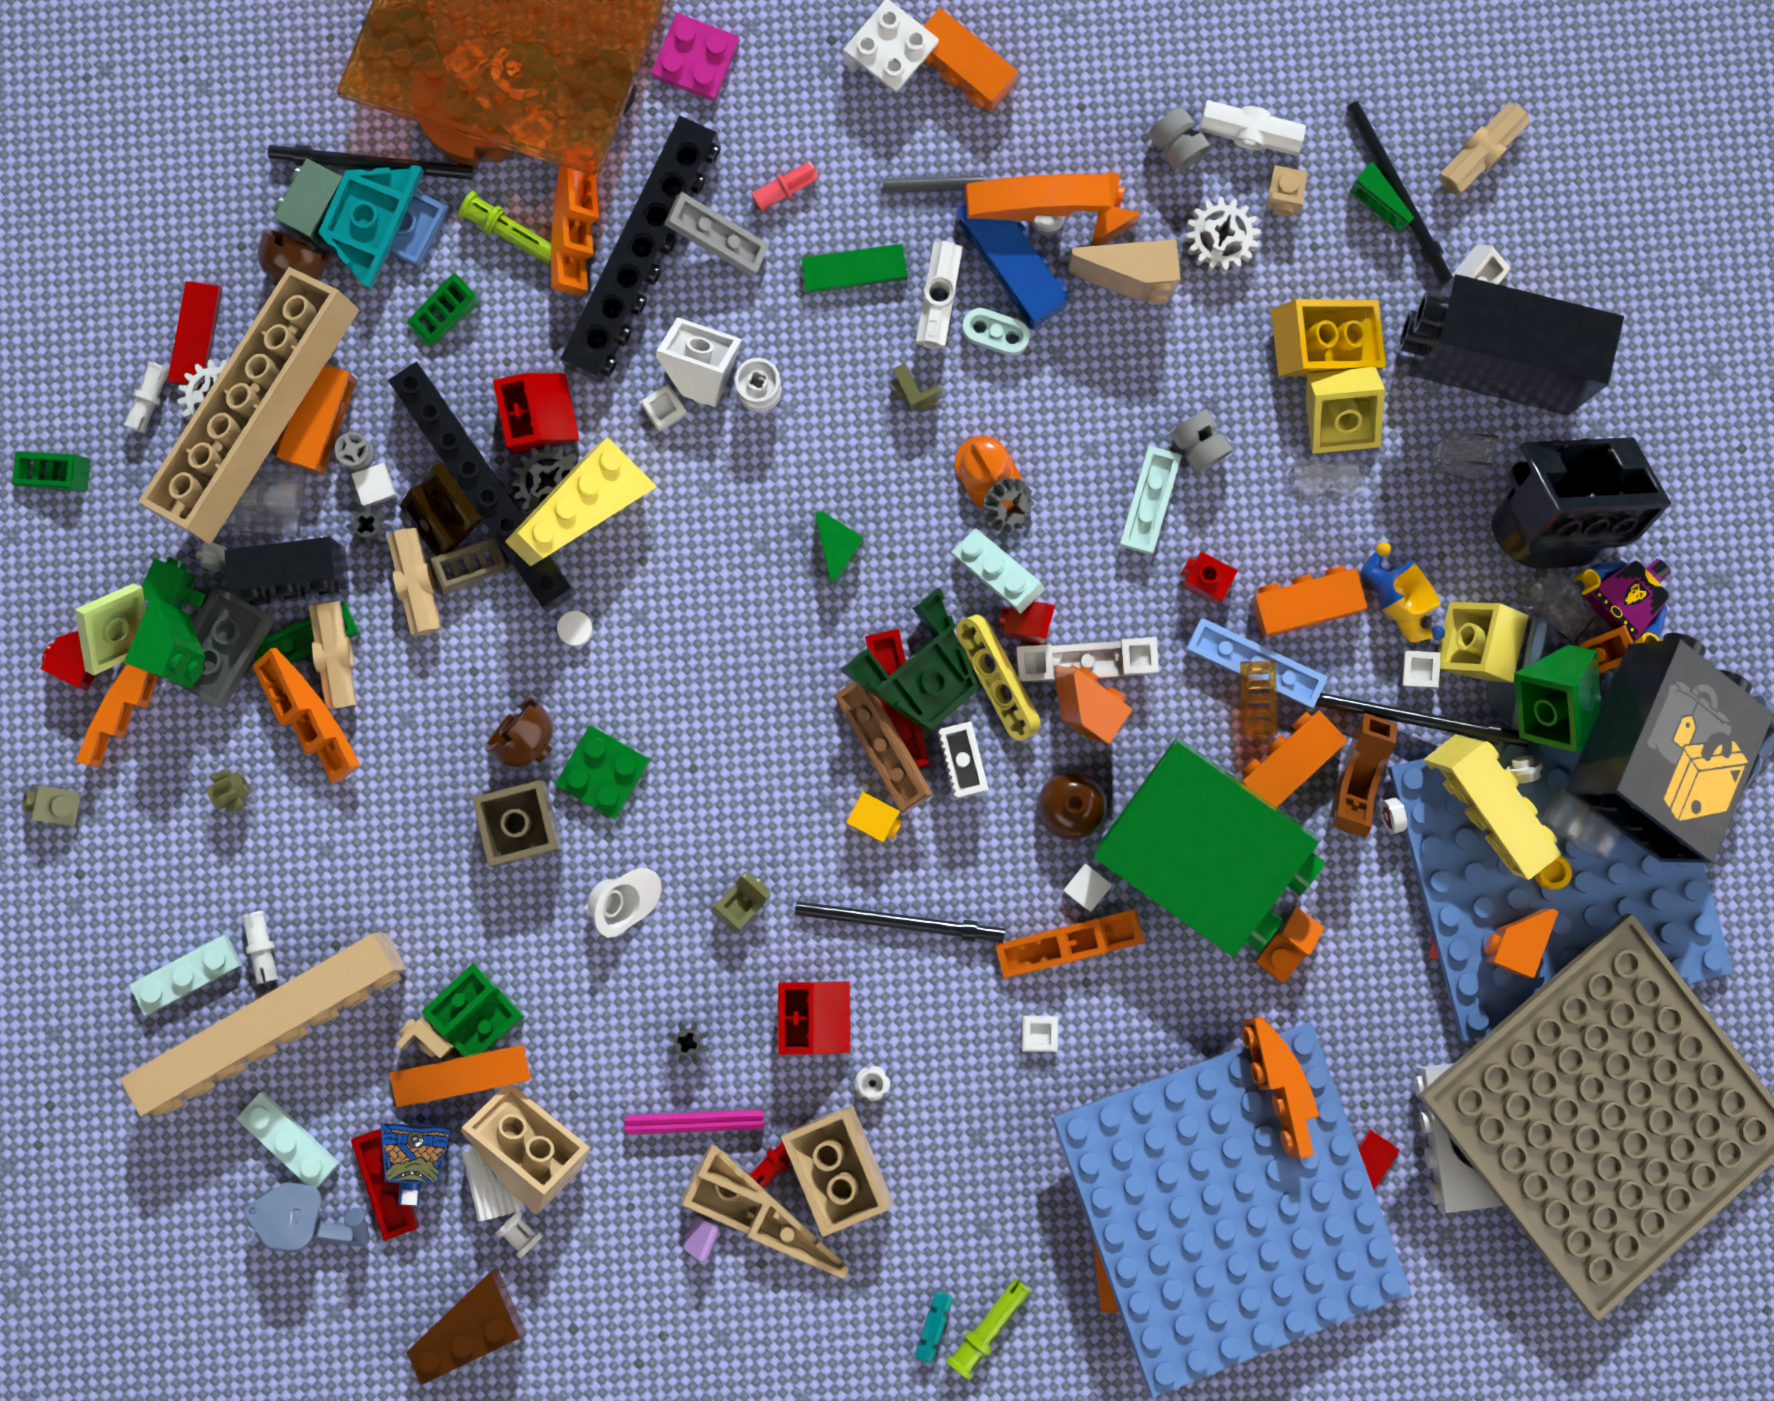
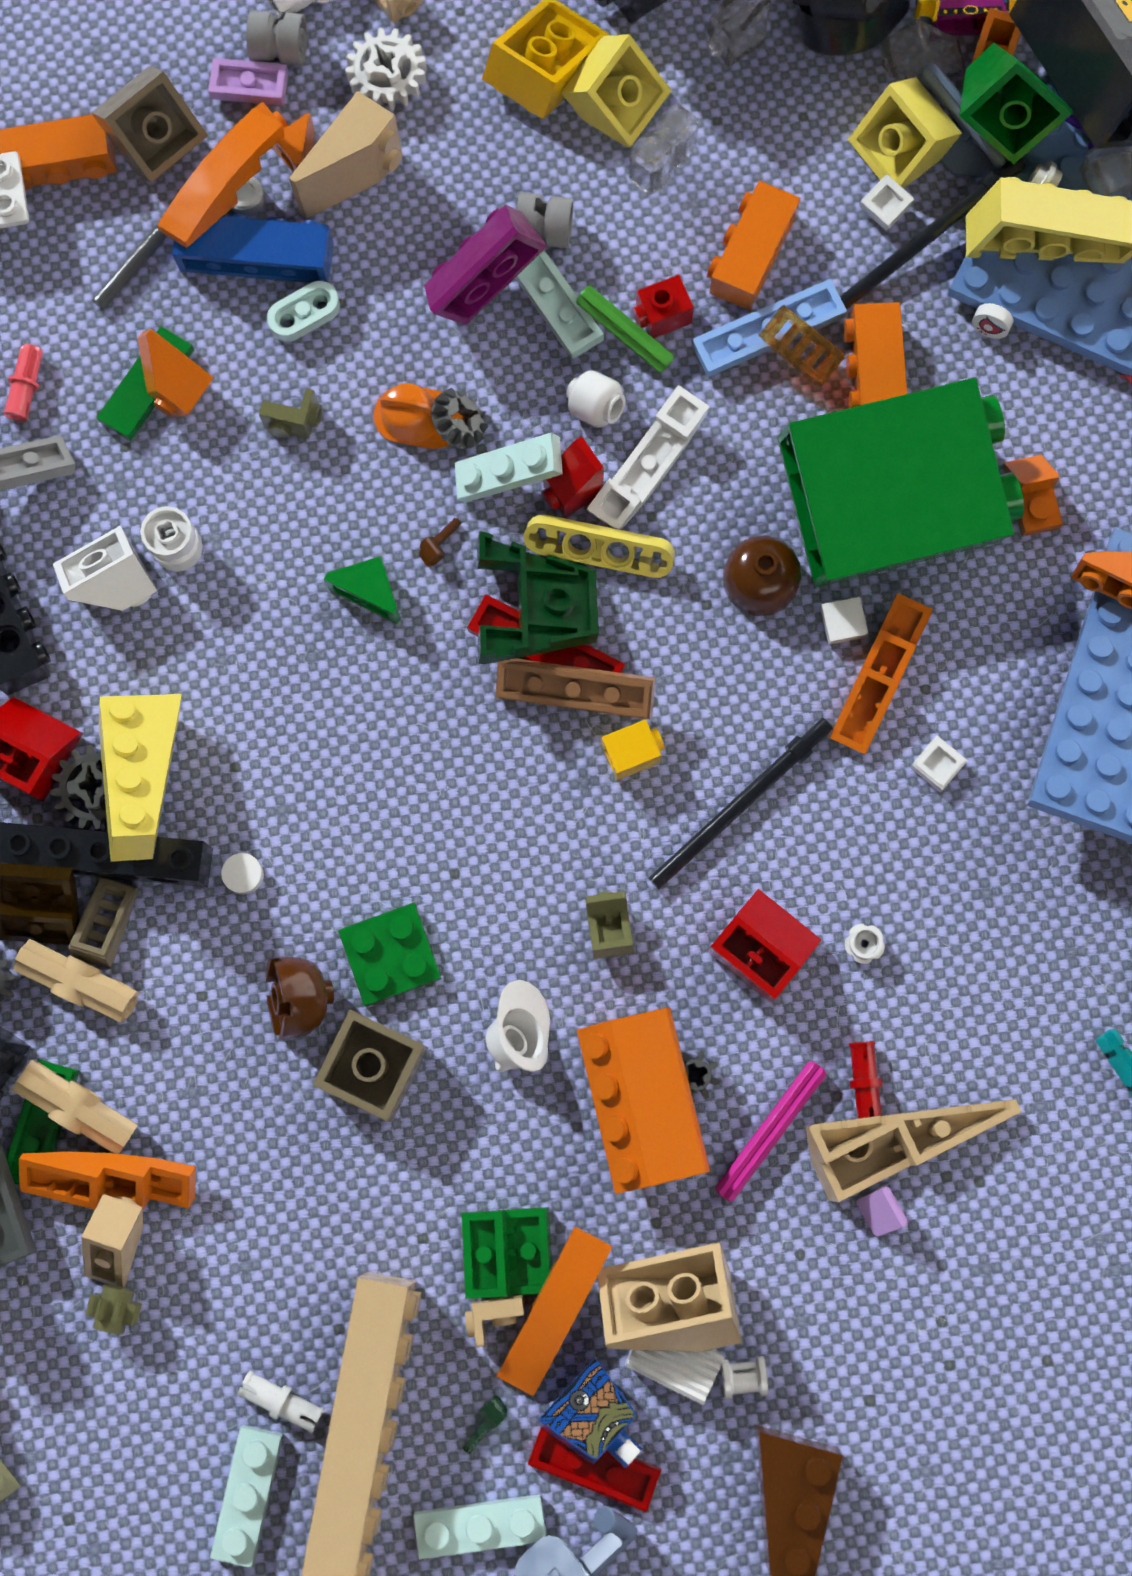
camera: 45 degrees left, 5 degrees down
(270, 752) = (112, 1240): none -> tan slope
(364, 1091) = (494, 1413): none -> clear green hand
(641, 1021) = (643, 1100): none -> orange slope
(663, 407) = (119, 639): white tile -> none
(837, 1170) = (921, 1036): tan slope -> none
(869, 285) = (170, 375): none -> orange slope
(900, 563) = (430, 547): none -> reddish brown hand
(941, 275) = (219, 315): white piece -> none
(963, 760) = (646, 631): white brick -> none
(1036, 112) = (150, 124): none -> dark tan brick
(1088, 705) = (689, 484): orange slope -> none
(1101, 587) = (595, 399): none -> white head
(1127, 430) = (483, 265): none -> magenta slope
(1131, 147) = (248, 81): none -> lavender plate
(1169, 564) = (624, 329): none -> bright green axle
(1361, 775) = (935, 317): dark orange arch -> none
(1403, 595) = (812, 167): yellow piece -> none

